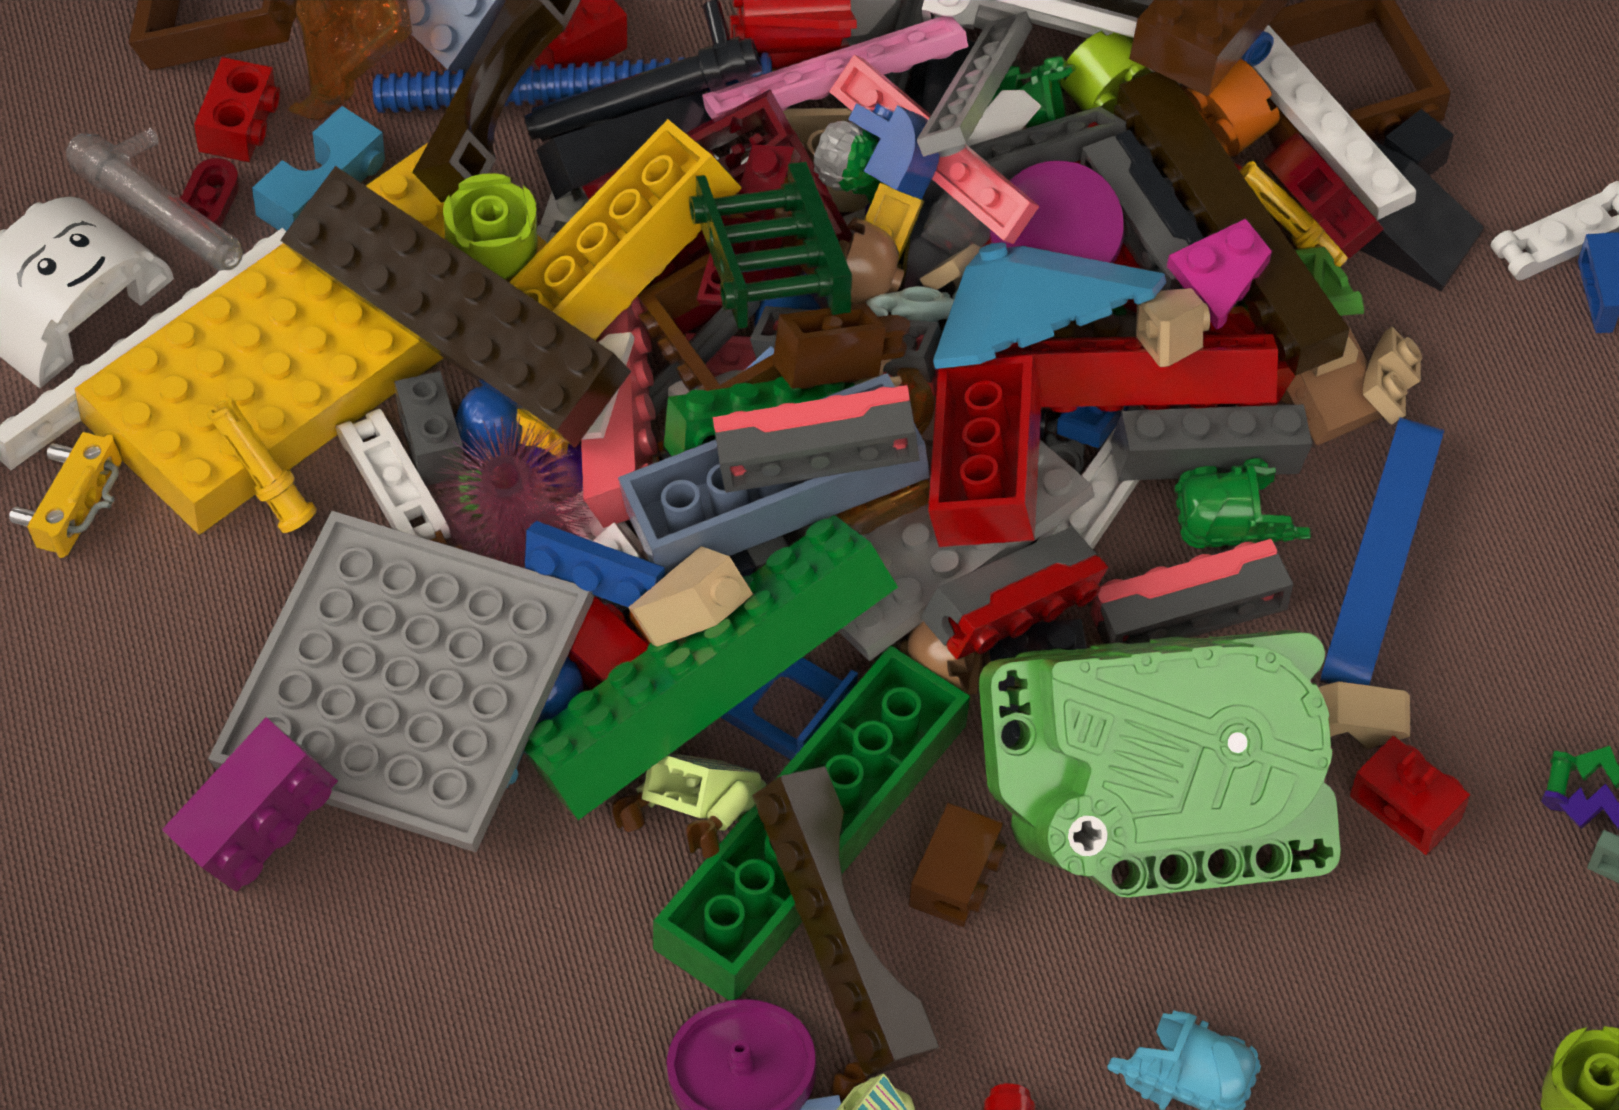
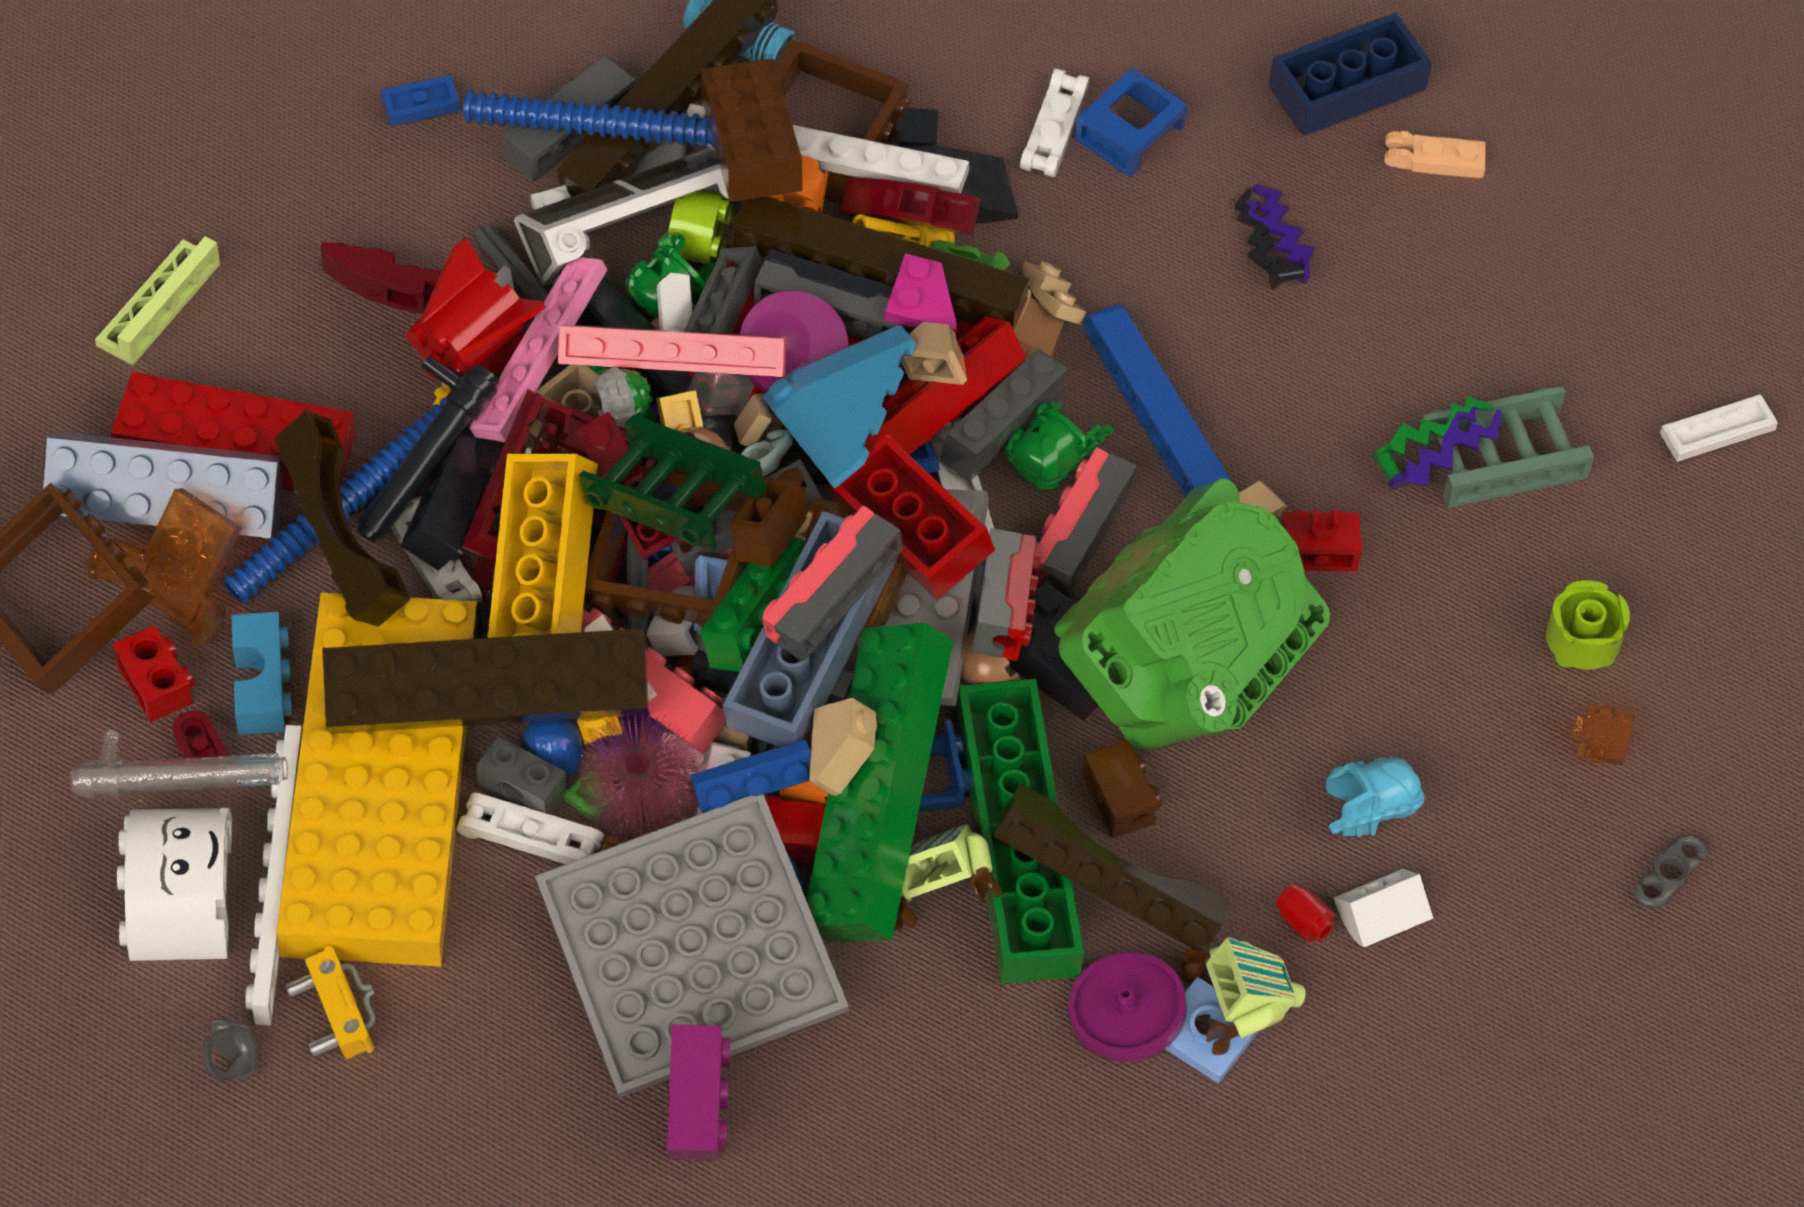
camera: 45 degrees left, 0 degrees up
(272, 482) = (470, 890): yellow pin -> none
(493, 222) = (444, 608): lime brick -> none
(897, 155) = (664, 361): brick -> none
(974, 86) = (653, 290): light grey plate -> none

